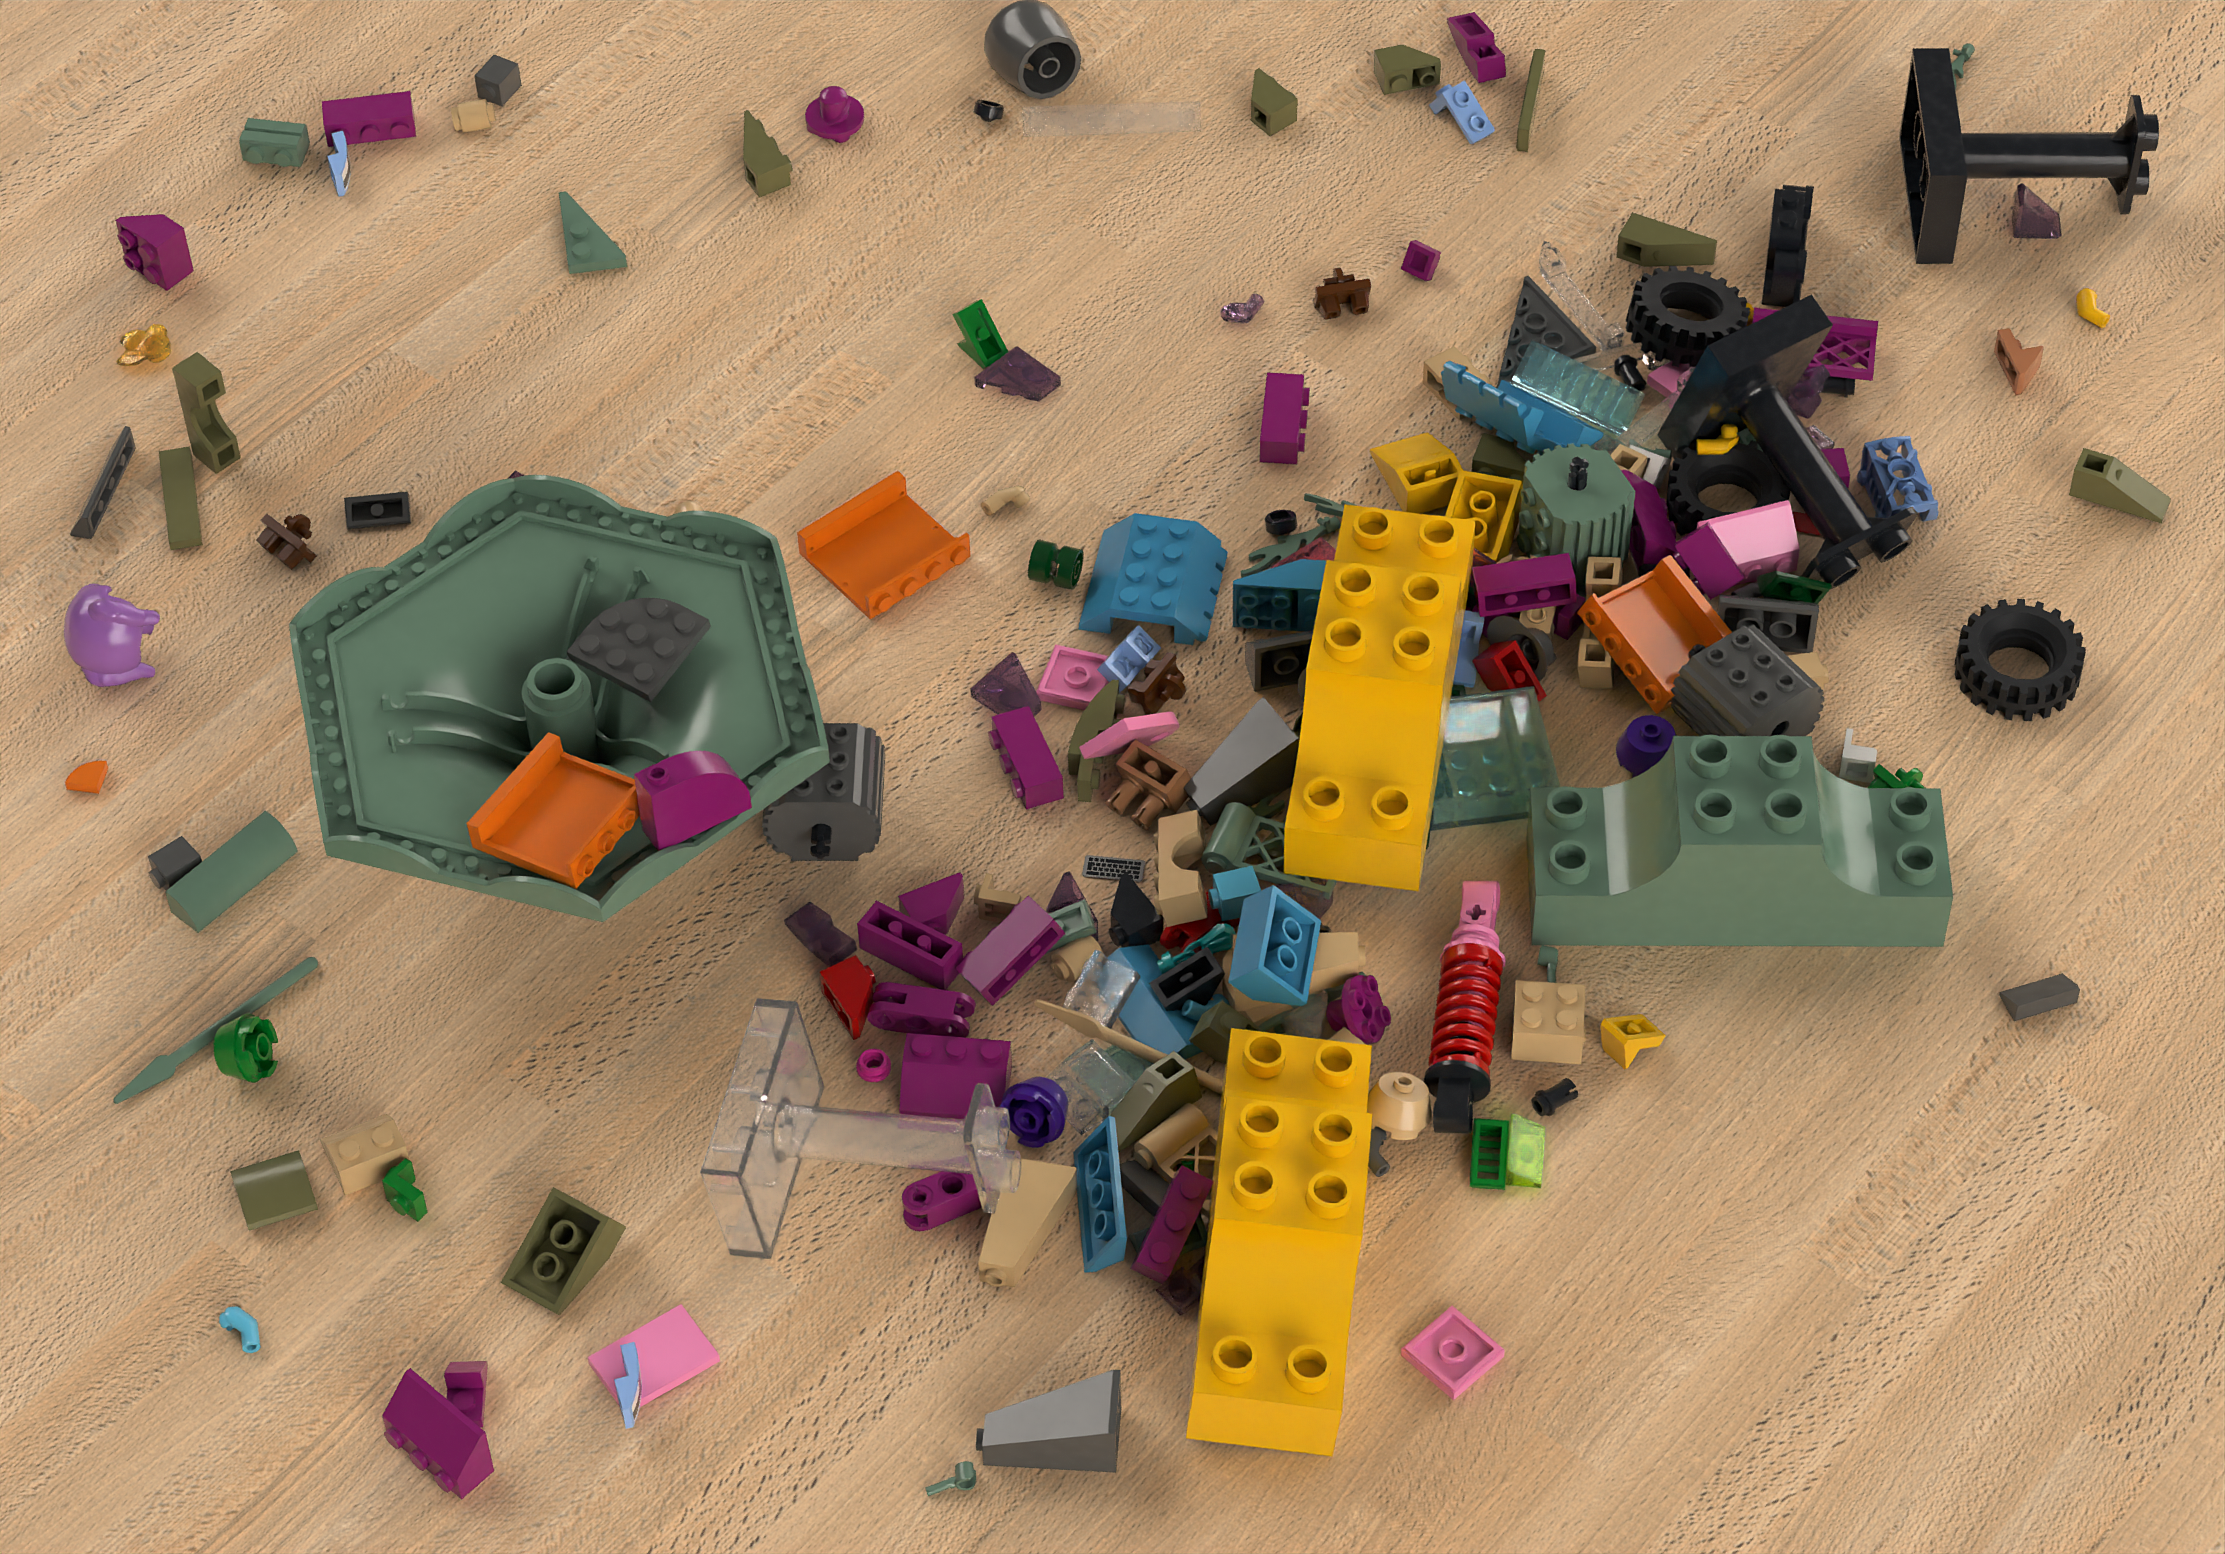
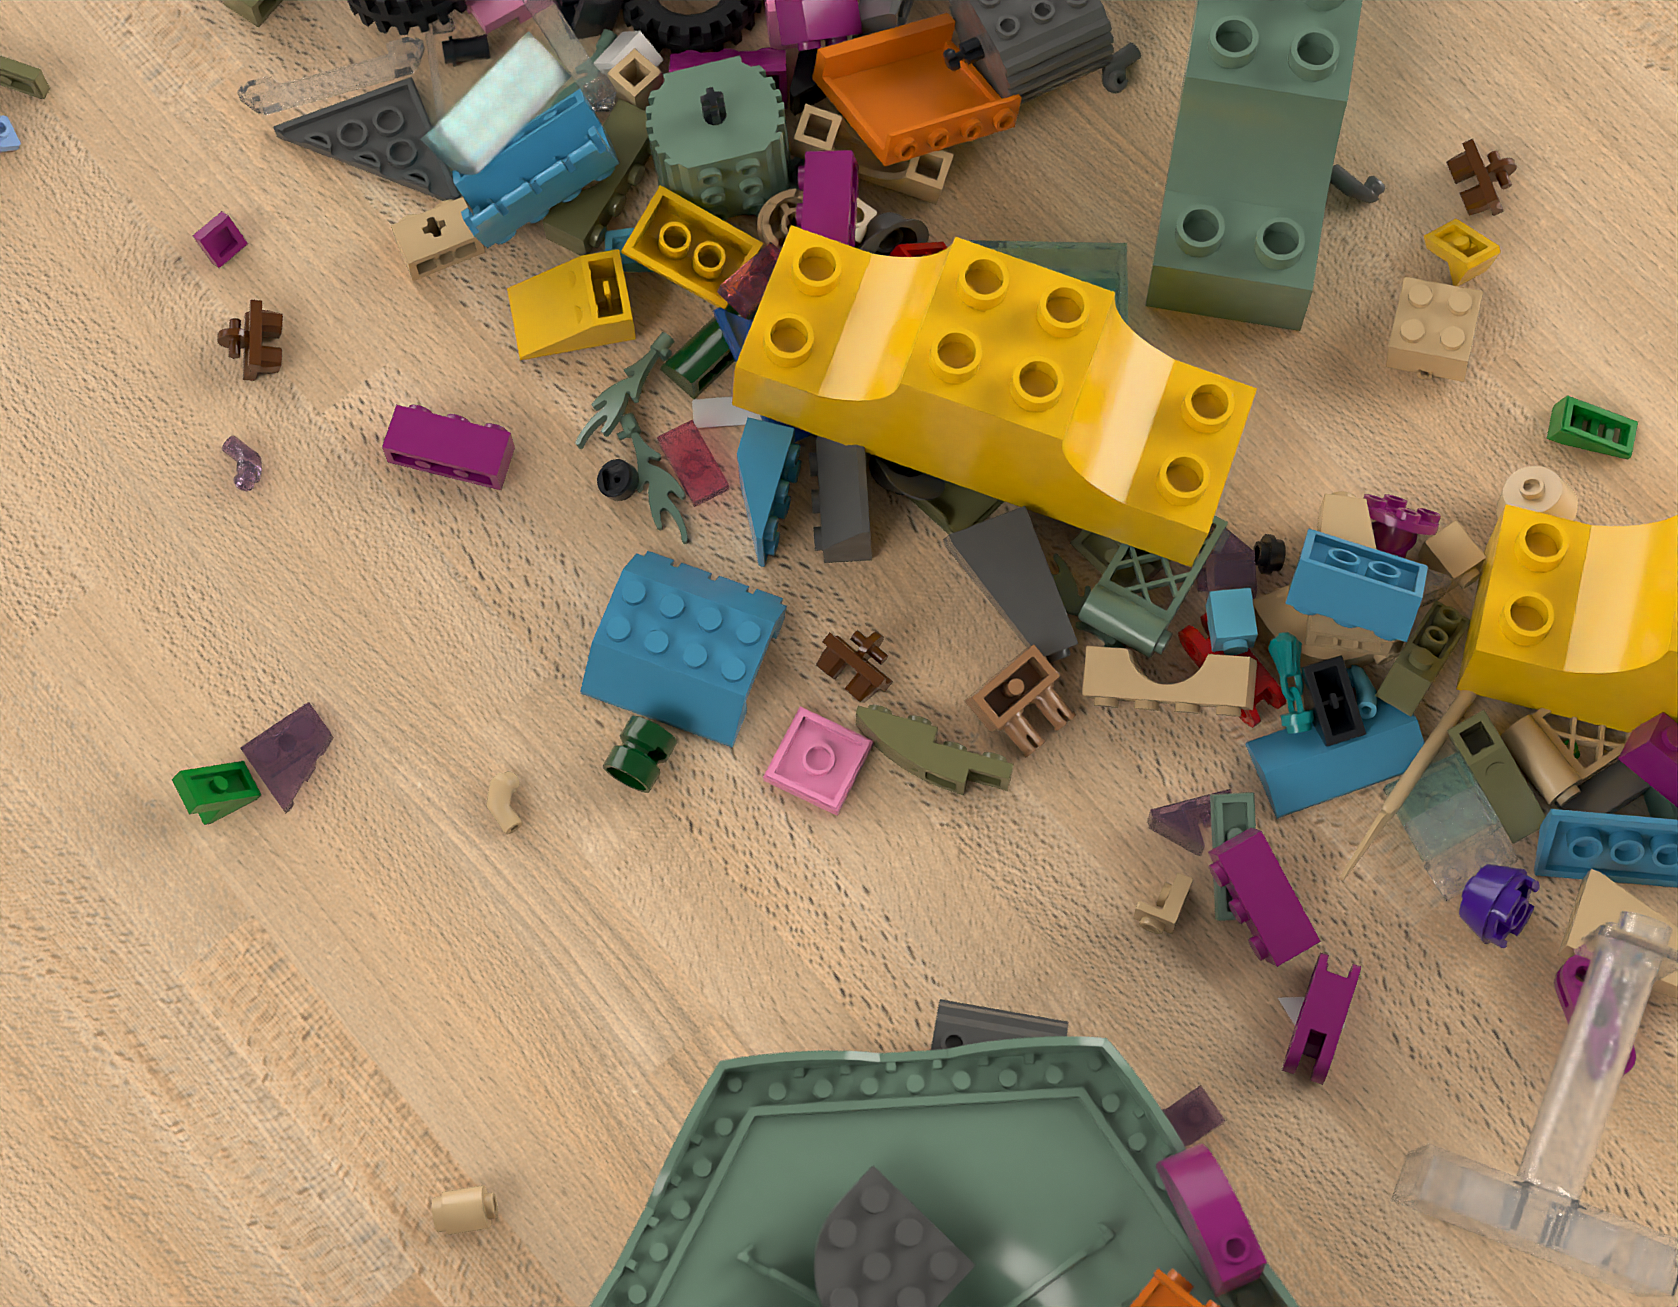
camera: 80 degrees left, 20 degrees up
(849, 992) = (1283, 1100): red slope -> none
(872, 1058) = (1398, 1079): dark pink plate -> none
(881, 547) = (559, 965): orange panel -> none
(910, 945) = (1230, 1016): magenta brick -> none
(935, 903) = (1167, 983): magenta slope -> none
(944, 1070) = (1427, 992): magenta slope -> none
(1006, 688) = (825, 844): clear purple wing -> none
(1026, 758) = (945, 837): magenta brick -> none
(1069, 959) = (1273, 825): tan brick -> none
(1102, 989) = (1331, 802): clear bracket -> none
(1112, 867) = (1119, 765): sticker -> none
(1118, 738) = (959, 701): bright pink tile -> none
(1129, 657) = (801, 688): light blue slope -> none
(1134, 916) = (1213, 752): black slope -> none
(1466, 1011) = (1360, 393): piece -> none
(1525, 1153) = (1596, 390): clear neon green slope -> none
(1547, 1101) = (1529, 352): black pin -> none
(1549, 957) = (1333, 312): sand green hand -> none
(1644, 743) = (1052, 149): dark purple cone -> none
(1673, 959) = (1354, 188): none -> dark grey arm
(1707, 1048) = (1469, 165): none -> reddish brown hips

